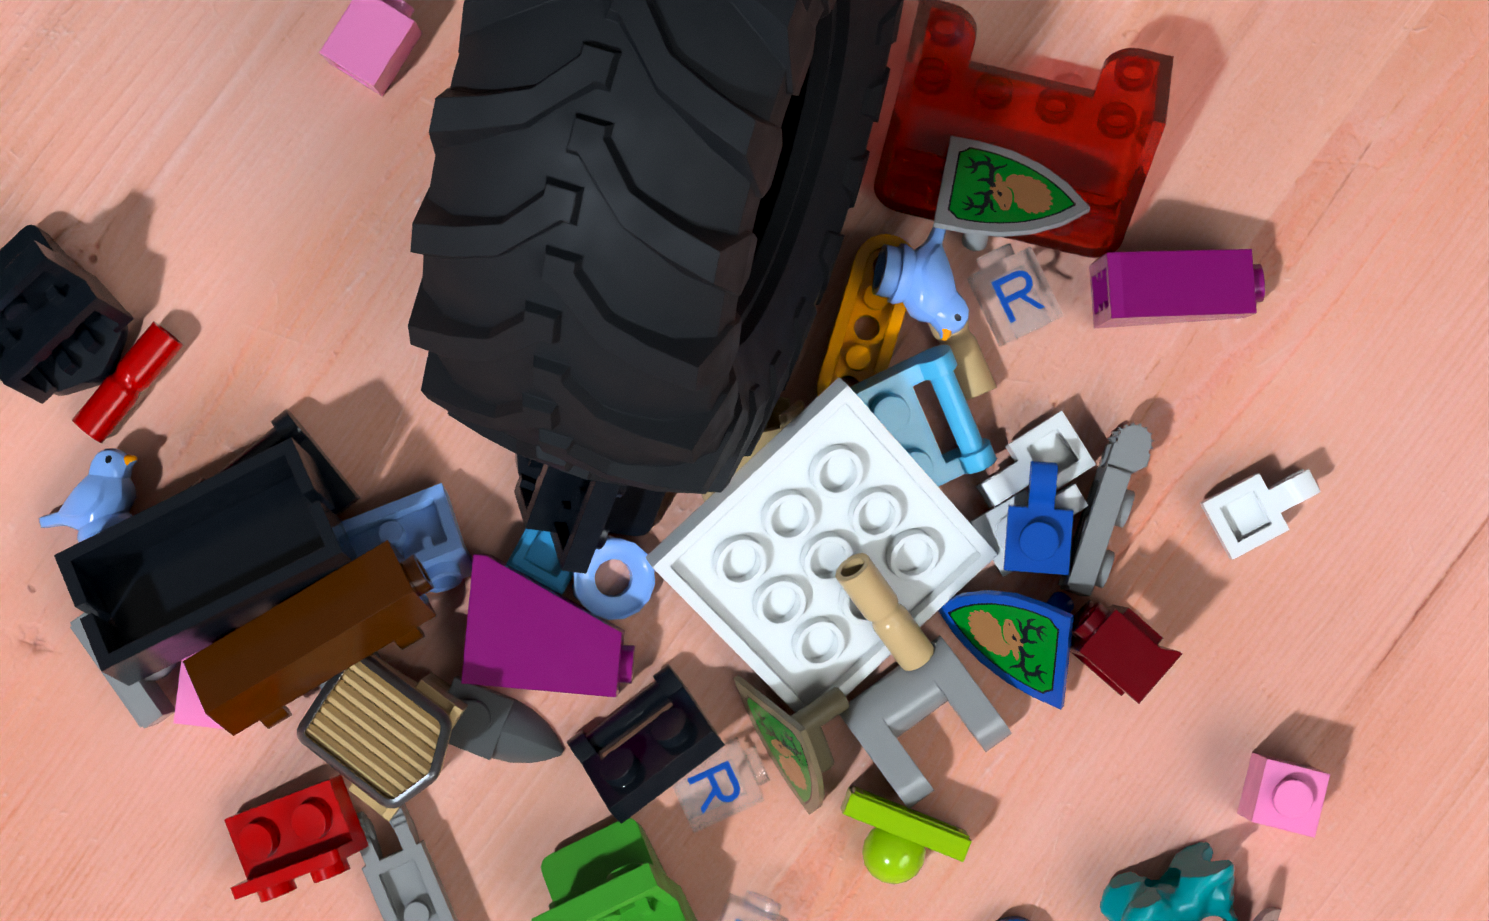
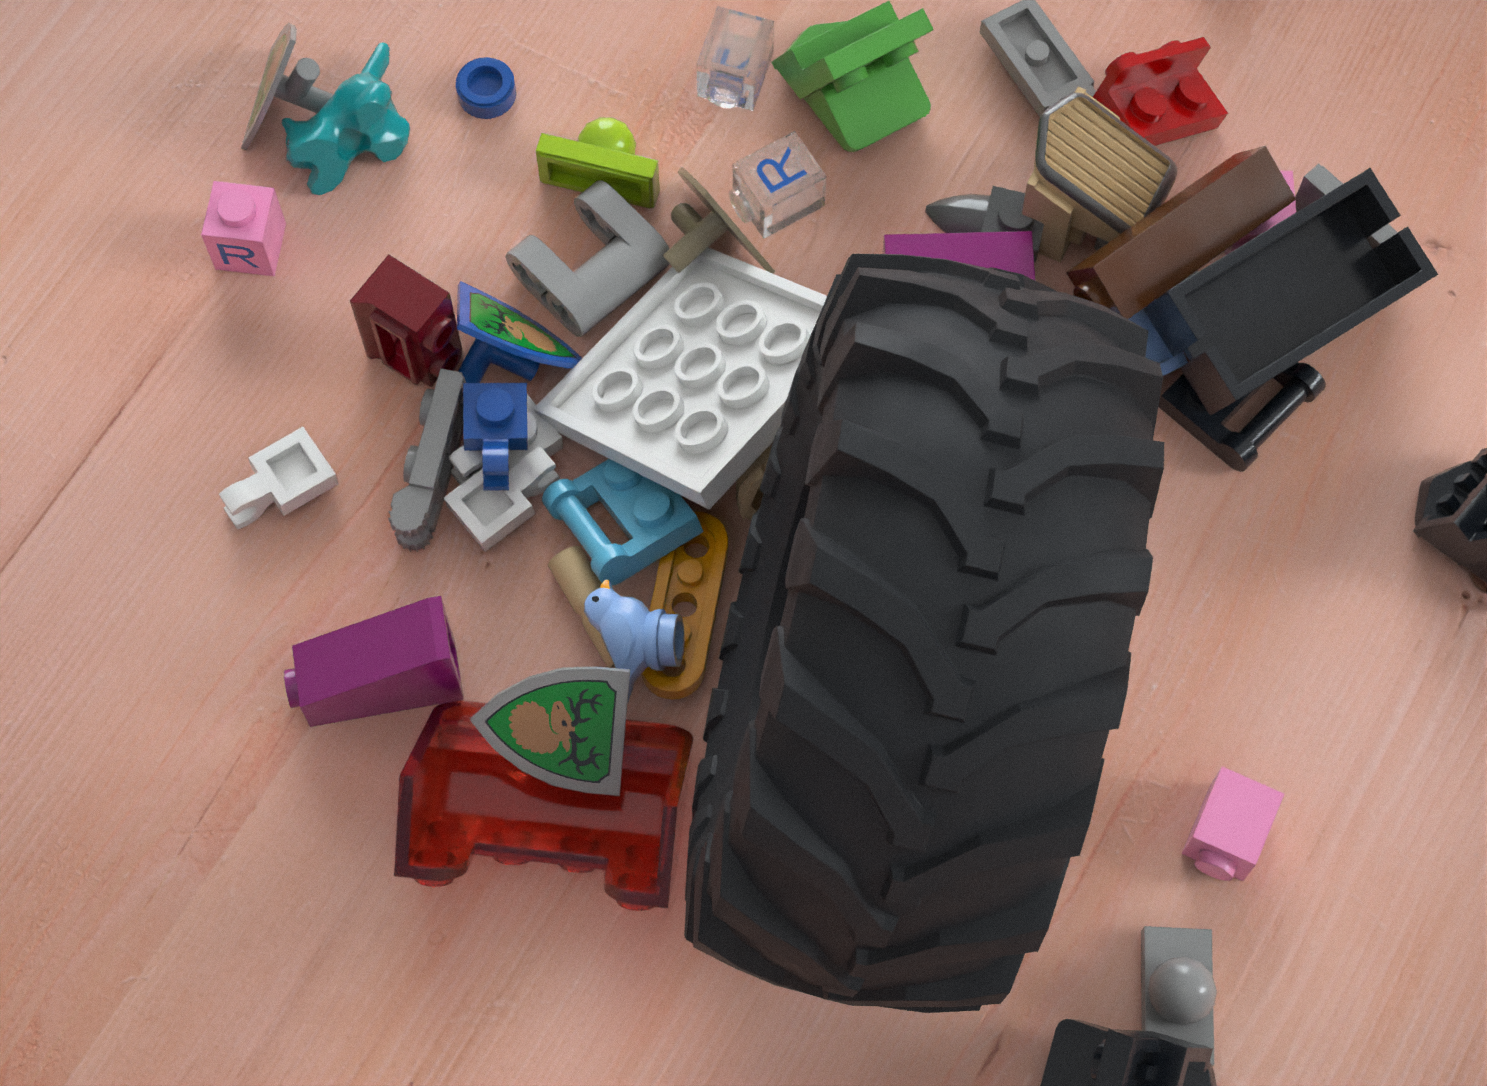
camera: 175 degrees right, 20 degrees down
(99, 498) = (1403, 359): light blue animal -> none
(122, 389) = (1402, 481): red piece -> none
(654, 755) = (839, 192): black plate -> none
(881, 607) = (638, 330): tan piece -> none
(1013, 293) = (535, 638): clear brick -> none

